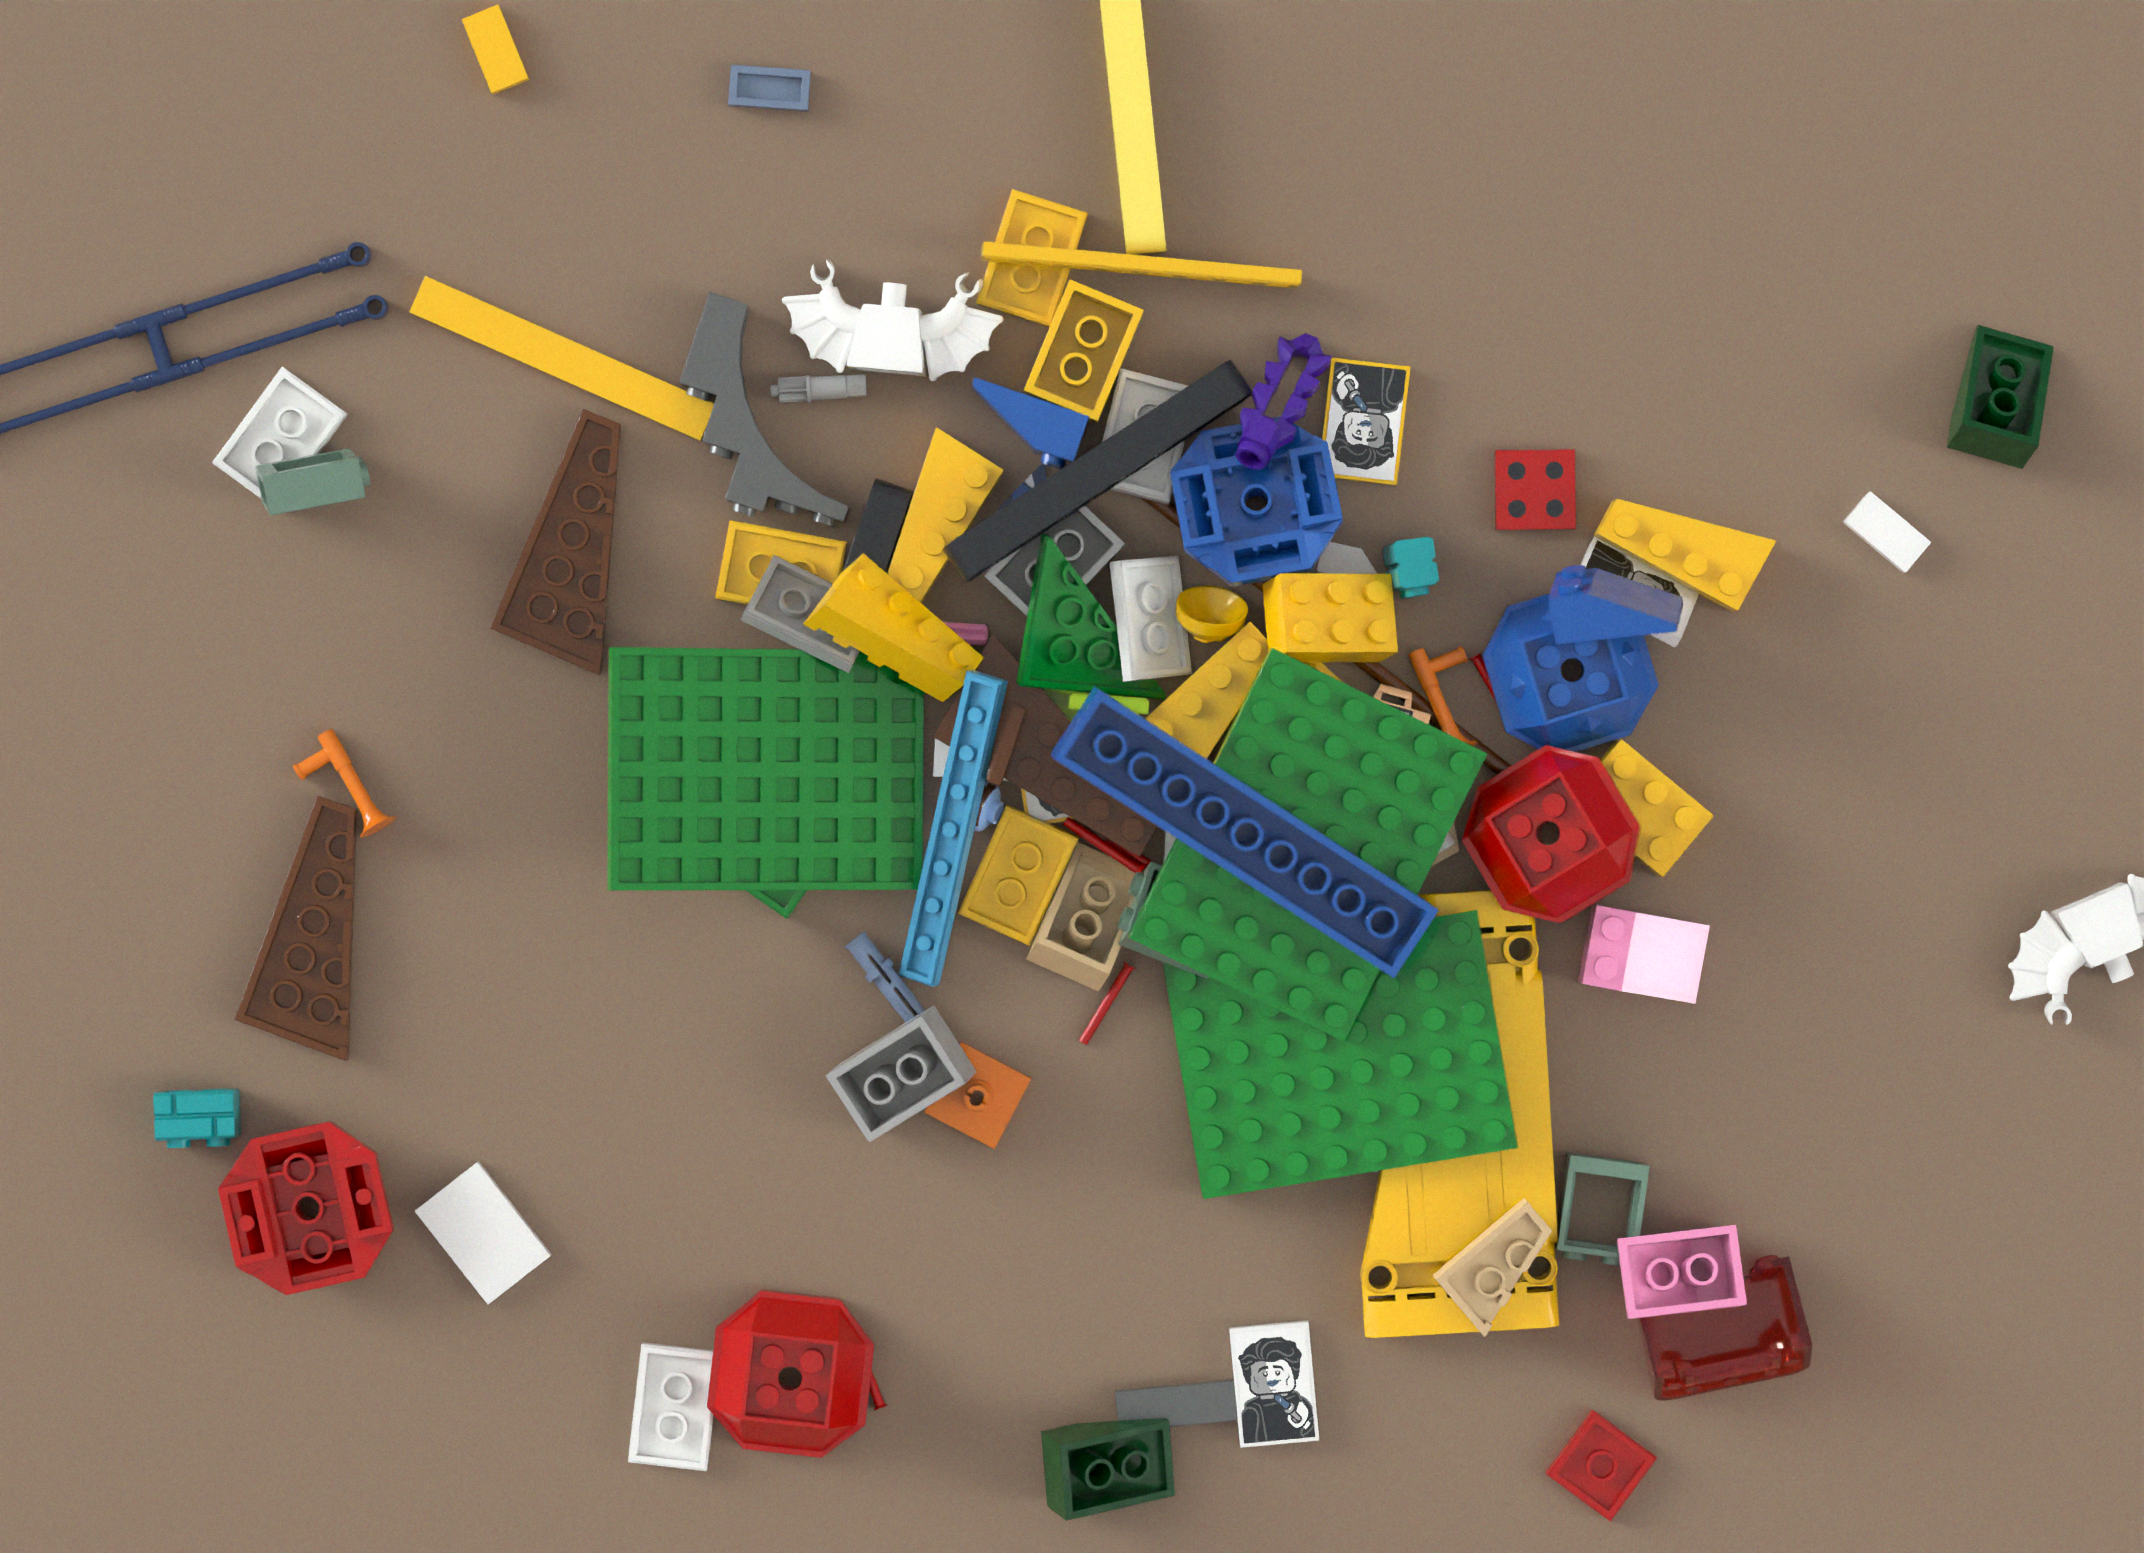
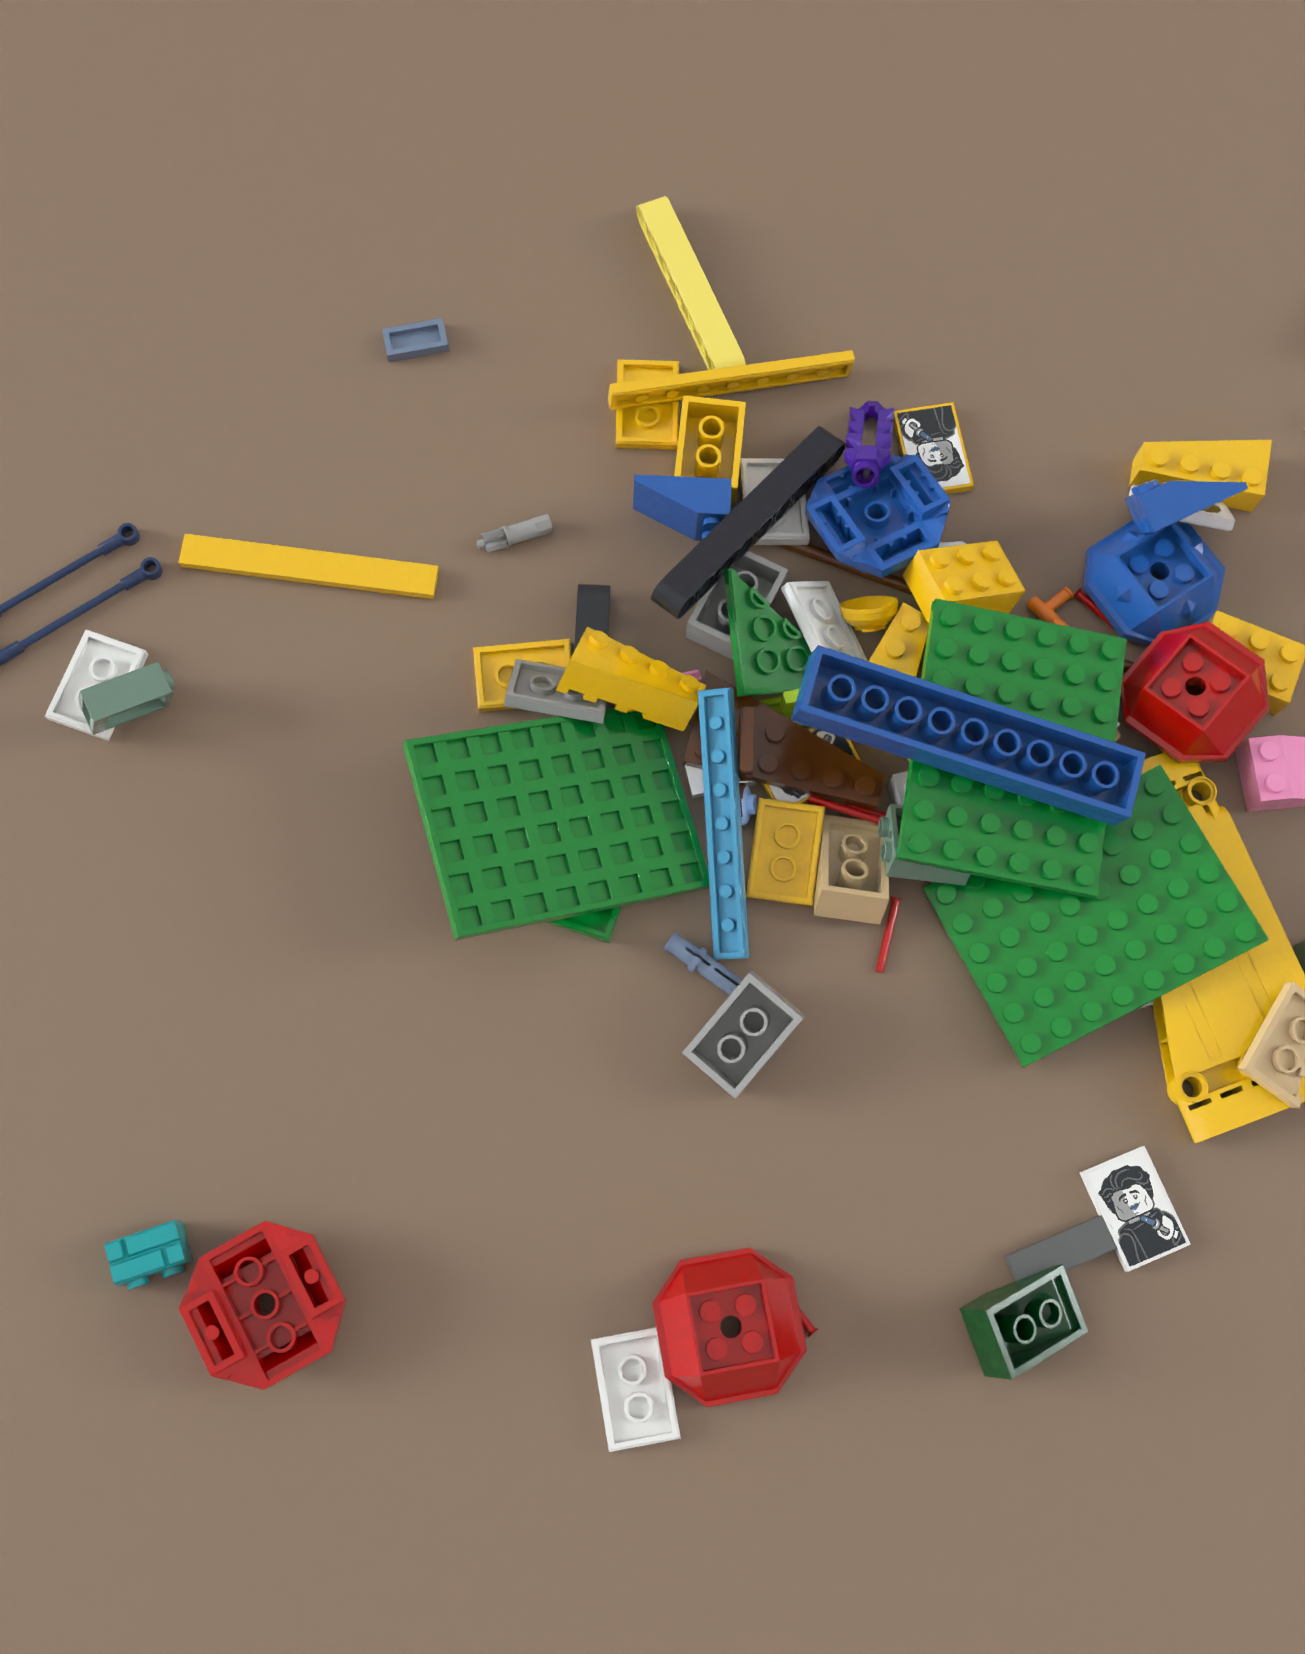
camera: 20 degrees left, 15 degrees down
(306, 957) = (214, 1090): reddish brown wing -> none
(334, 752) = (245, 958): orange piece -> none
(483, 1232) = (426, 1283): white tile -> none
(495, 49) = (200, 365): yellow tile -> none
(564, 569) = (351, 722): reddish brown wing -> none
(716, 370) = (458, 581): dark grey arch -> none
(889, 334) = (558, 478): white torso -> none
(944, 505) = (637, 569): yellow wedge -> none
(985, 1101) = (815, 1043): orange tile -> none
(1411, 566) = (1012, 527): teal brick -> none
(1535, 489) = (1075, 464): red tile -> none

